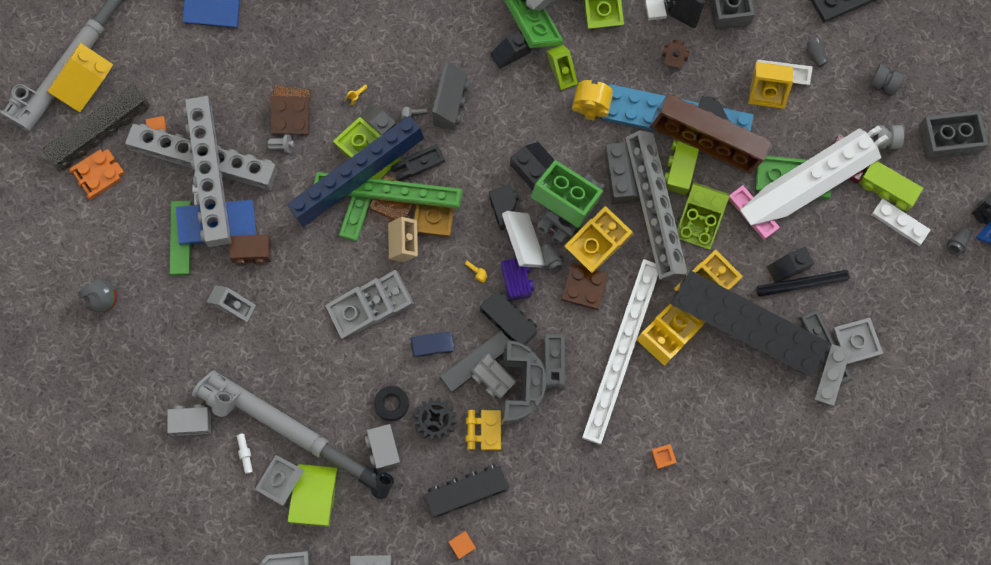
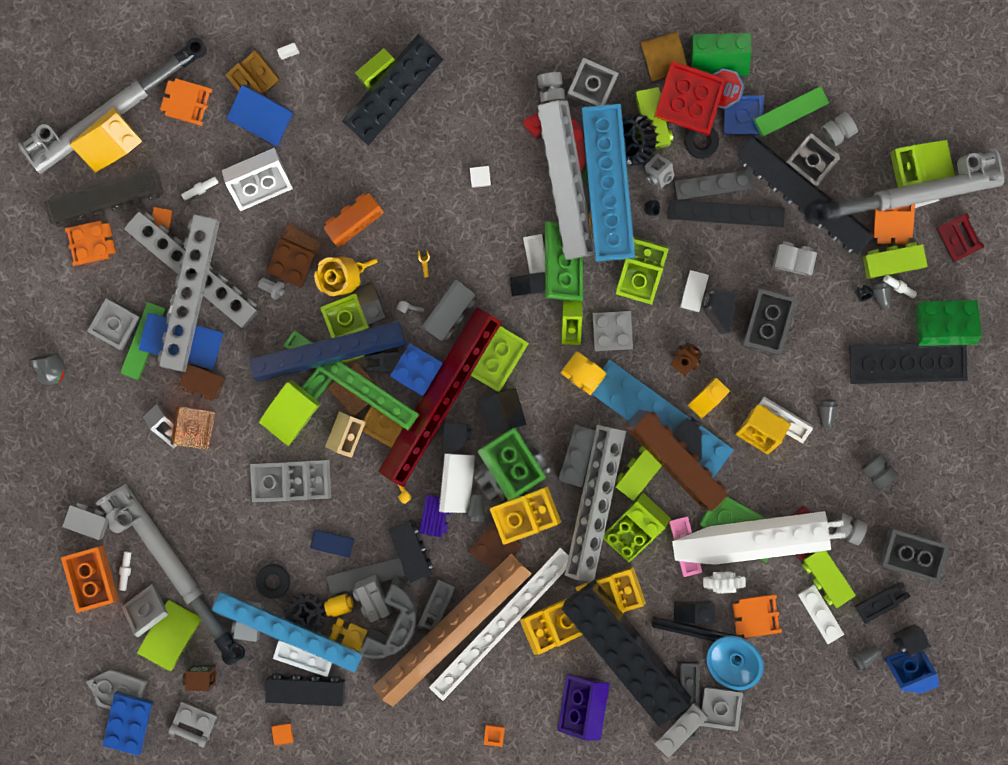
camera: 30 degrees right, 15 degrees up
(139, 21) = (185, 101): none -> orange plate
(147, 233) = (113, 324): none -> light grey plate
(181, 87) = (199, 188): none -> white bar
(213, 472) = (90, 579): none -> orange brick
(230, 59) = (256, 179): none -> white slope
(257, 292) = (192, 428): none -> clear orange plate
(332, 57) = (353, 219): none -> orange slope
(337, 106) = (337, 276): none -> yellow brick
(342, 242) = (289, 412): none -> lime slope
(359, 520) = (199, 678): none -> reddish brown brick
(409, 69) = (424, 260): none -> yellow hand
(426, 436) = (287, 631): none -> dark azure brick
(442, 158) = (416, 369): none -> blue plate
(451, 462) = (302, 659): none -> white plate
(463, 397) = (339, 605): none -> yellow brick
(474, 174) = (440, 396): none -> dark red brick
(502, 23) = (535, 253): none -> white tile
(510, 121) = (499, 359): none -> lime plate
(579, 375) = (451, 630): none -> medium nougat brick
(600, 61) = (612, 331): none -> light grey plate
(710, 78) = (708, 397): none -> yellow slope
(733, 393) = (583, 707): none -> dark purple slope
(804, 224) = (724, 582): none -> white gear
(846, 246) = (756, 616): none -> orange plate
(852, 304) = (730, 670): none -> dark azure dish
(946, 190) = (881, 603): none -> black hinge

